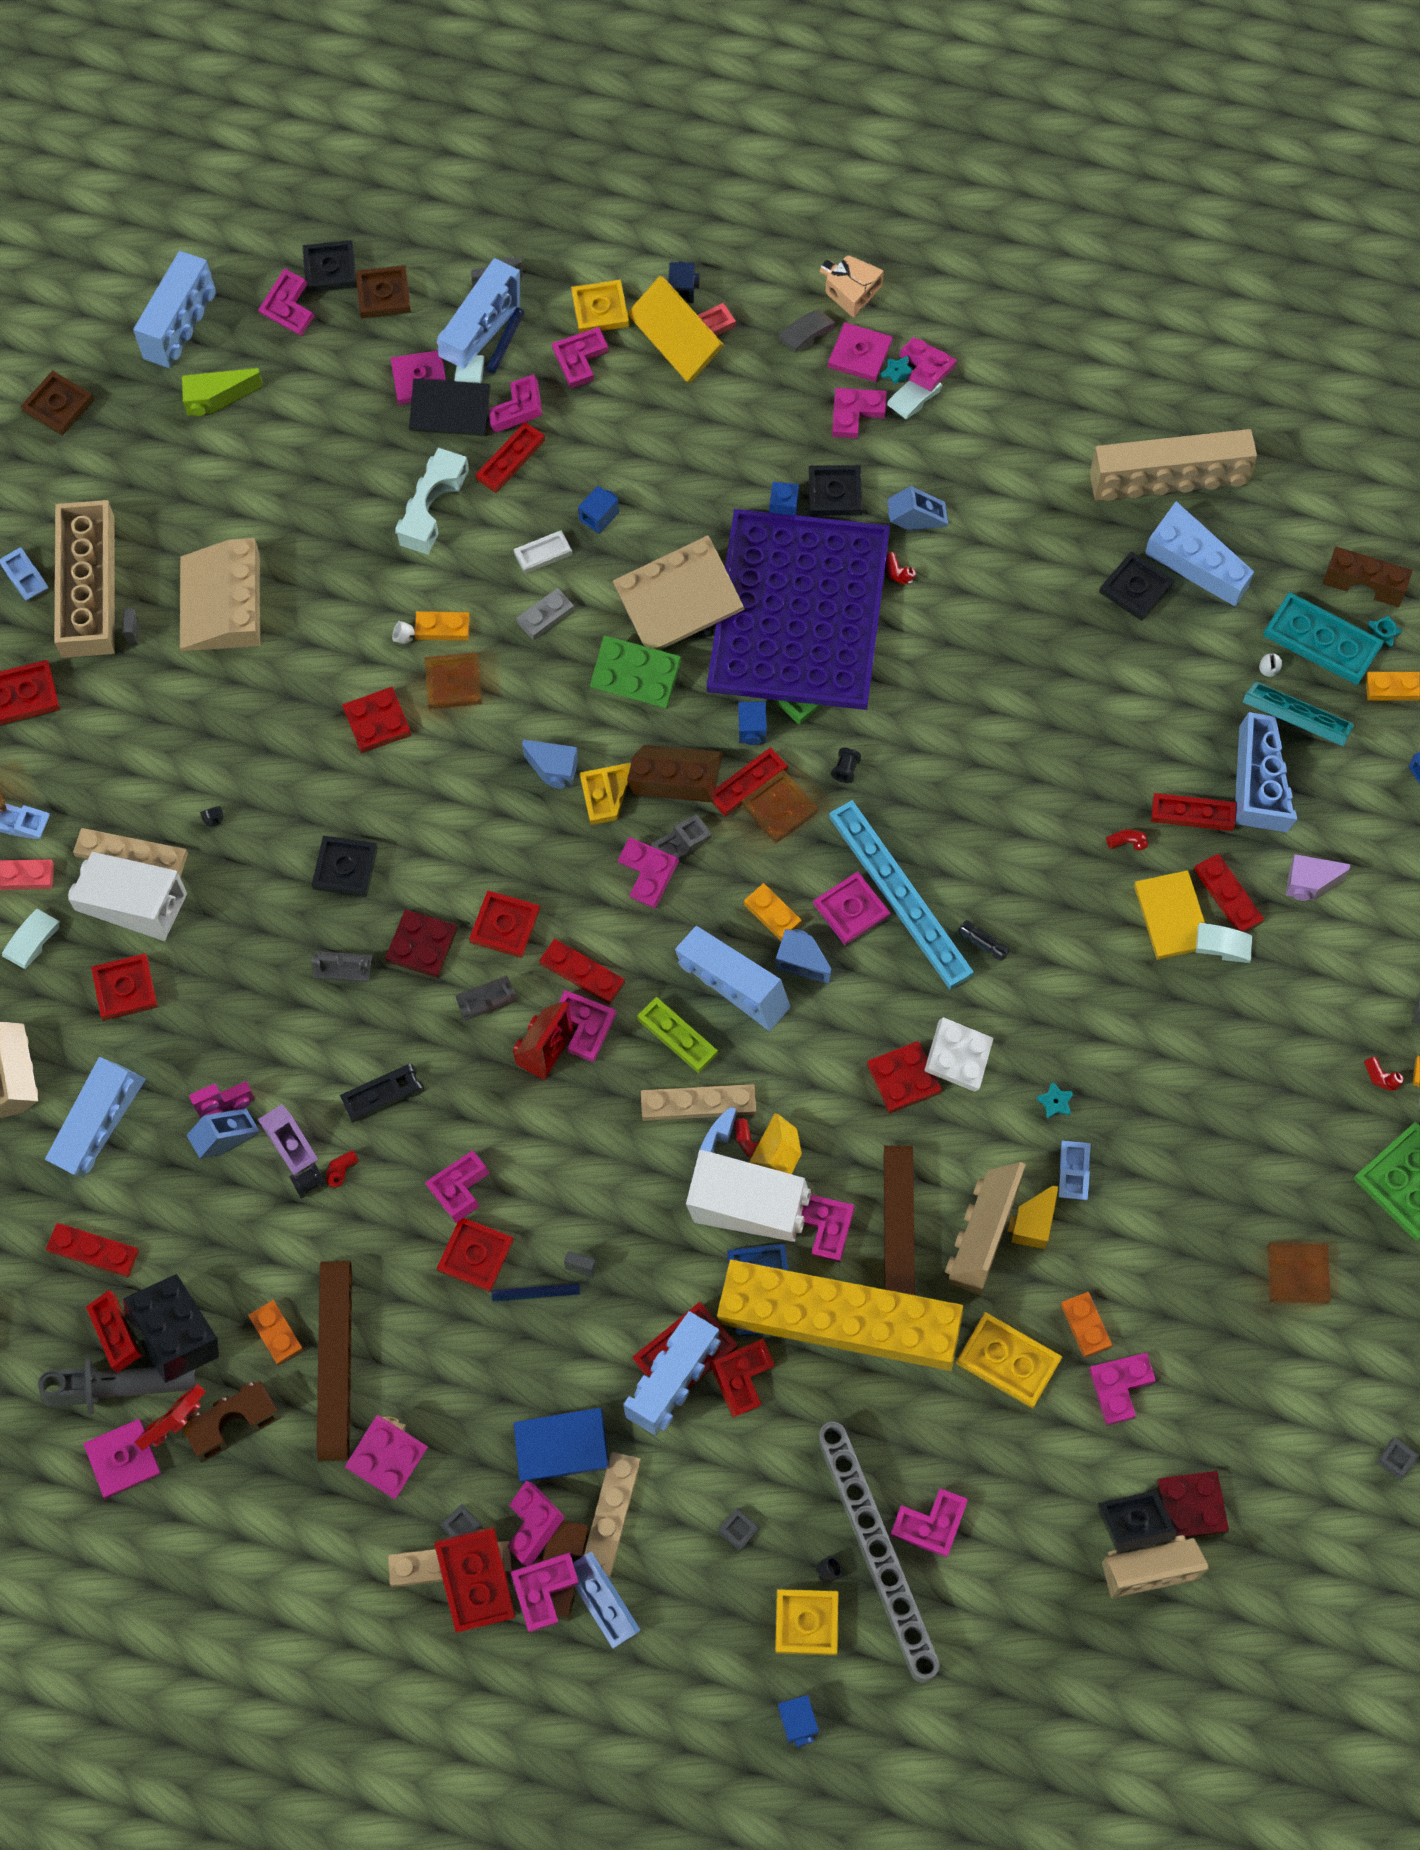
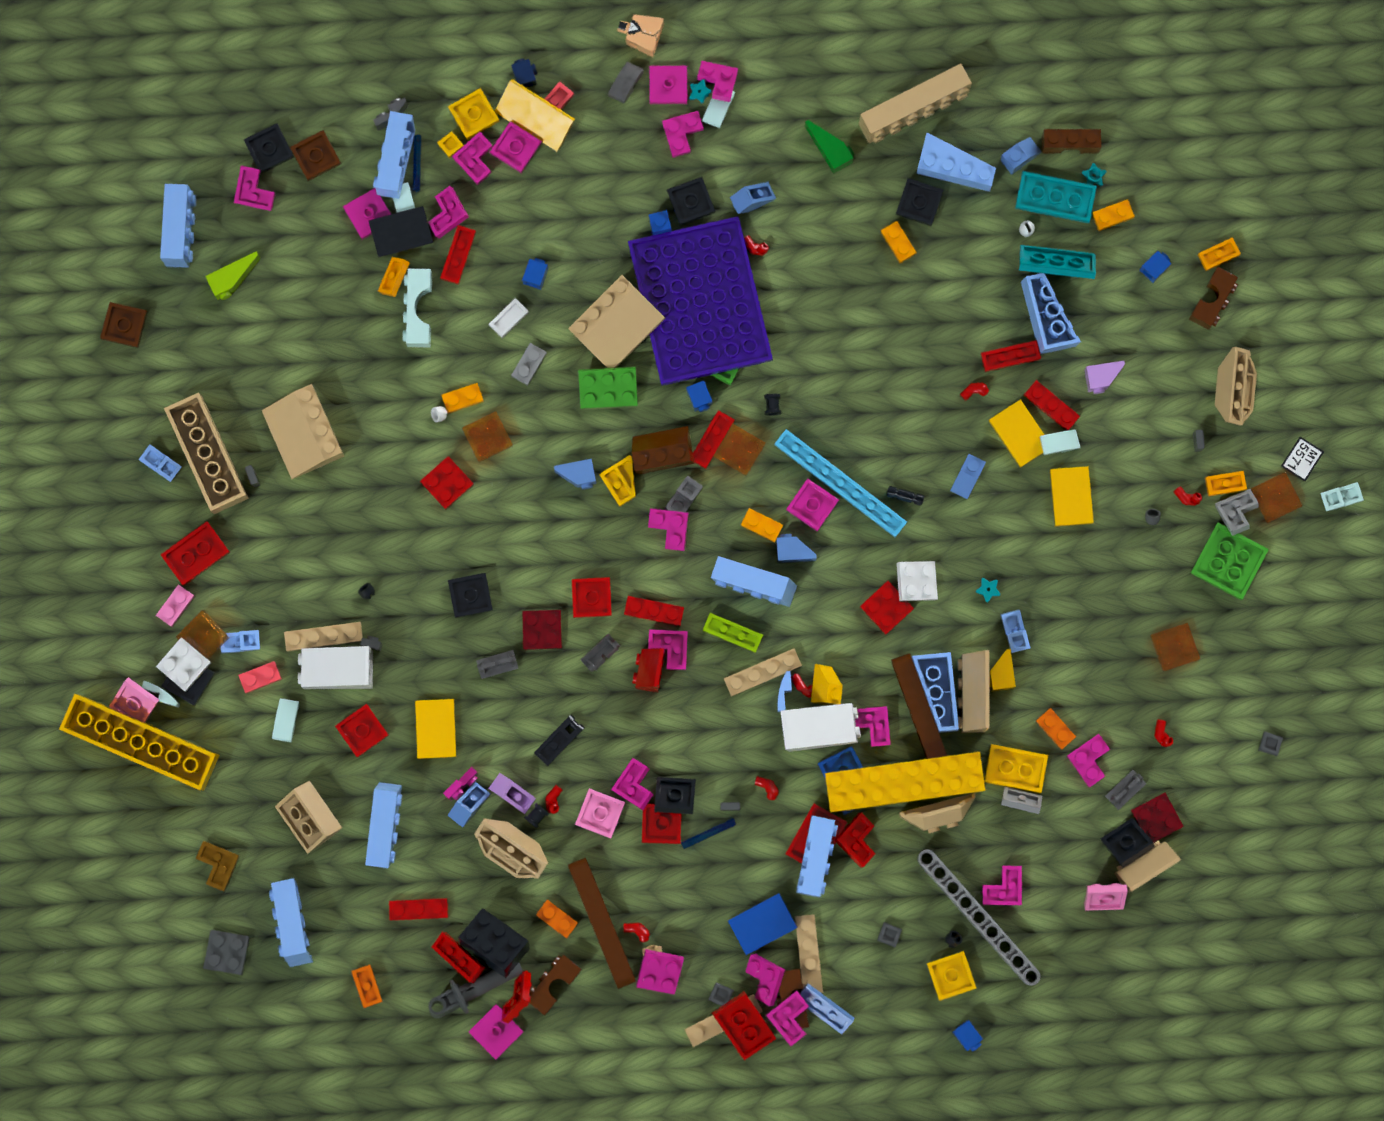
camera: 20 degrees left, 15 degrees up
(190, 881) = (372, 642): none -> dark grey plate
(223, 1020) = (435, 728): none -> yellow tile
(251, 1209) = (511, 849): none -> tan wedge
(383, 1389) = (639, 929): none -> red arm
(396, 1209) = (600, 813): none -> bright pink plate
(417, 455) = (393, 276): none -> light orange plate
(508, 1220) = (675, 795): none -> black plate
(555, 330) = (450, 144): none -> yellow plate
(636, 360) = (515, 147): none -> dark pink plate
(646, 1257) = (769, 785): none -> red arm
(874, 1382) = (939, 814): none -> tan wedge
(937, 1199) = (938, 685): none -> light blue wedge
(1001, 1405) = (1021, 800): none -> light grey plate
(1042, 485) = (832, 149): none -> green slope
(1077, 1588) = (1105, 897): none -> bright pink plate
(1080, 942) = (967, 476): none -> medium blue slope
(1090, 626) = (898, 242): none -> light orange plate
(1160, 1446) = (1125, 789): none -> flat silver hinge
(1216, 1020) = (1071, 496): none -> yellow tile
(1237, 1388) = (1160, 734): none -> red arm
(1290, 573) = (1020, 155): none -> medium blue slope
(1323, 1084) = (1152, 516): none -> dark grey hinge

